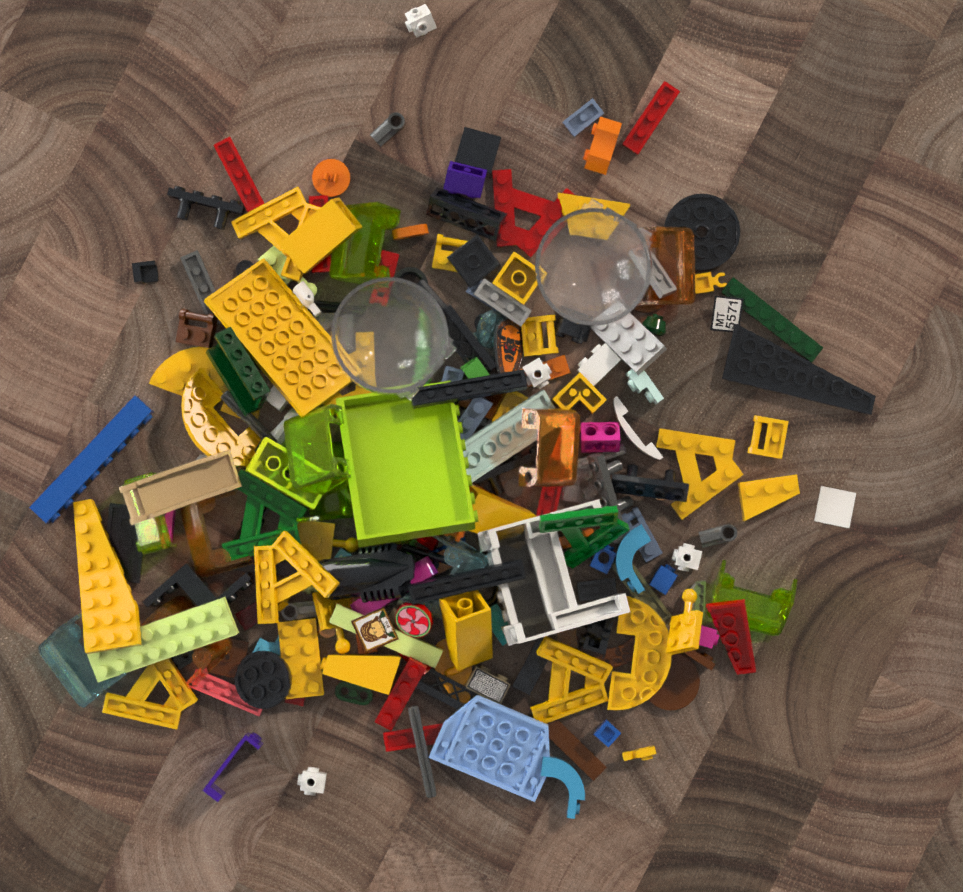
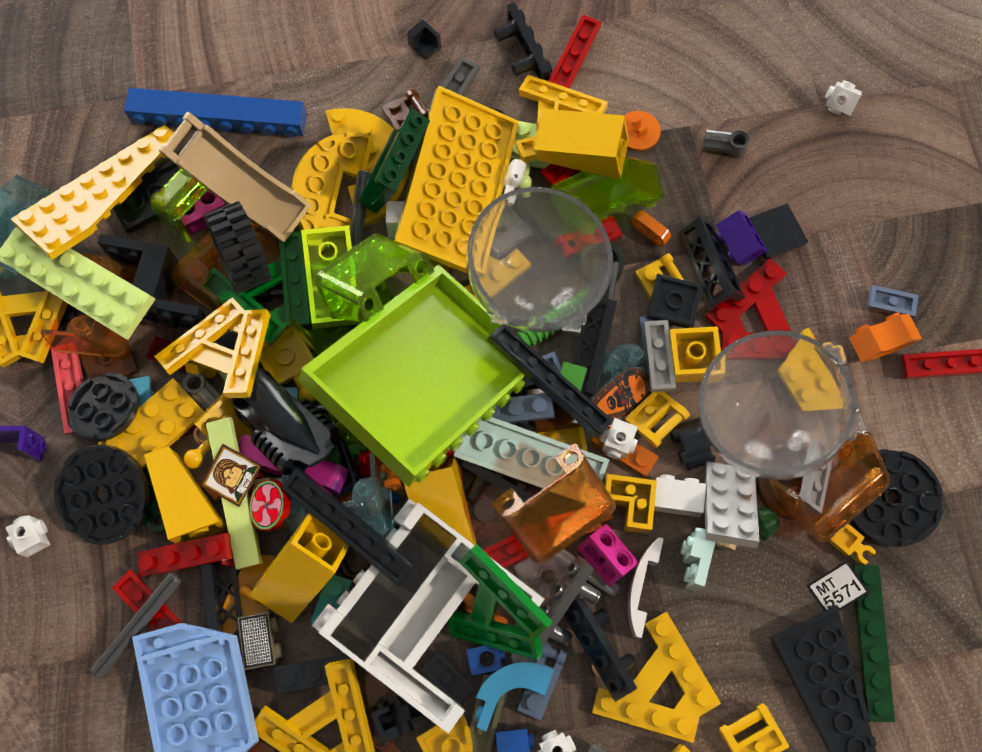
camera: 50 degrees right, 15 degrees down
(231, 520) = (238, 247): none -> black tyre
(316, 700) = (78, 497): none -> black plate

